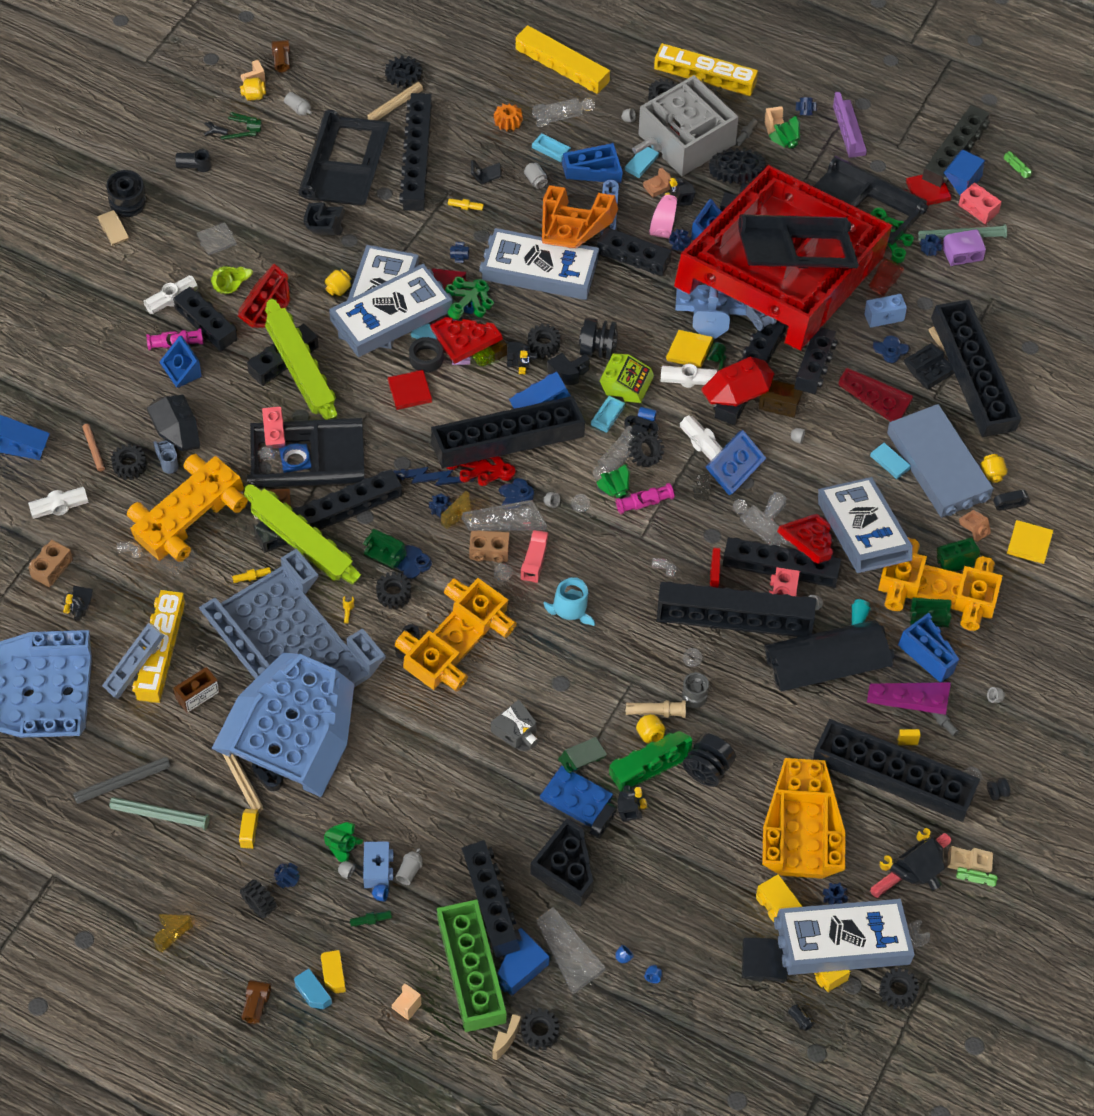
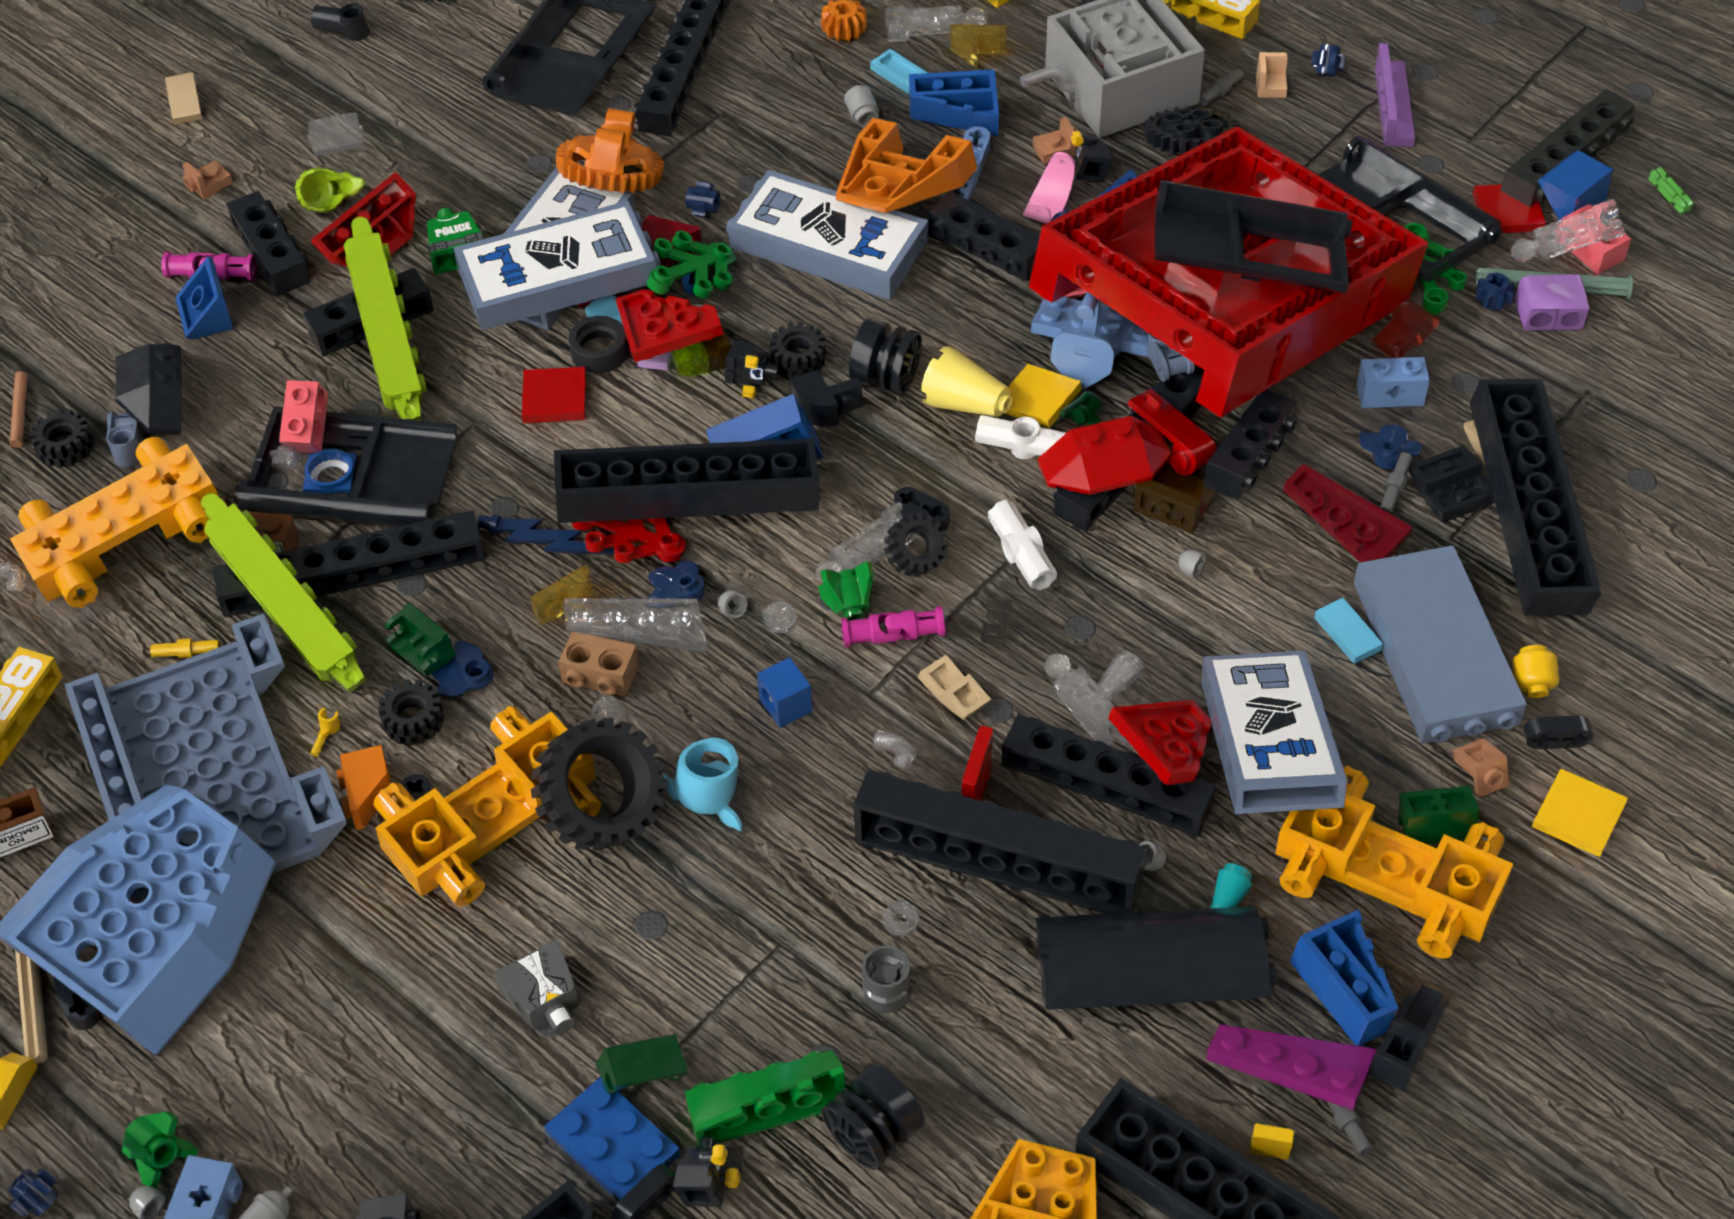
camera: 15 degrees right, 5 degrees down
(126, 193) = (217, 49): black wheel -> none
(149, 281) = (207, 179): none -> nougat bracket
(169, 291) = (214, 204): white piece -> none
(318, 300) = (447, 232): none -> green torso
(323, 219) = (504, 125): black brick -> none
(338, 282) = (494, 216): yellow head -> none
(382, 632) = (362, 776): none -> orange slope
(400, 233) = (607, 155): none -> orange piece
(439, 504) = (536, 579): dark blue gear -> none
(465, 204) = (738, 134): yellow bar -> none
(486, 174) = (784, 96): black bracket -> none
(534, 556) = (672, 694): coral leg -> none
(536, 610) = (637, 772): none -> black tyre
(591, 121) = (972, 40): none -> clear yellow slope
(597, 545) = (784, 692): none -> blue piece
(607, 414) = (871, 480): medium azure tile -> none
(626, 378) = (916, 426): lime piece -> none
(629, 115) = (1036, 40): light grey hinge -> none
(641, 162) = (1039, 108): medium azure tile -> none
(647, 413) = (938, 489): blue hinge -> none
(650, 349) = (964, 386): none -> light yellow cone
(650, 728) = (784, 1036): yellow head -> none
(666, 708) = (823, 1004): tan pin -> none
(687, 529) = (952, 688): none -> tan slope
(735, 462) = (1067, 590): blue plate -> none
(784, 366) = (1191, 444): none -> red door
(787, 134) = (1286, 96): green brick -> none
(787, 575) = (1110, 822): coral brick -> none
(899, 370) = (1396, 482): none -> dark grey bar
(938, 609) = (1378, 906): dark green hinge -> none
(966, 671) = (1410, 1034): none -> black slope
(967, 203) = (1571, 233): none -> clear plate
(995, 695) = (1460, 1089): light grey hinge -> none

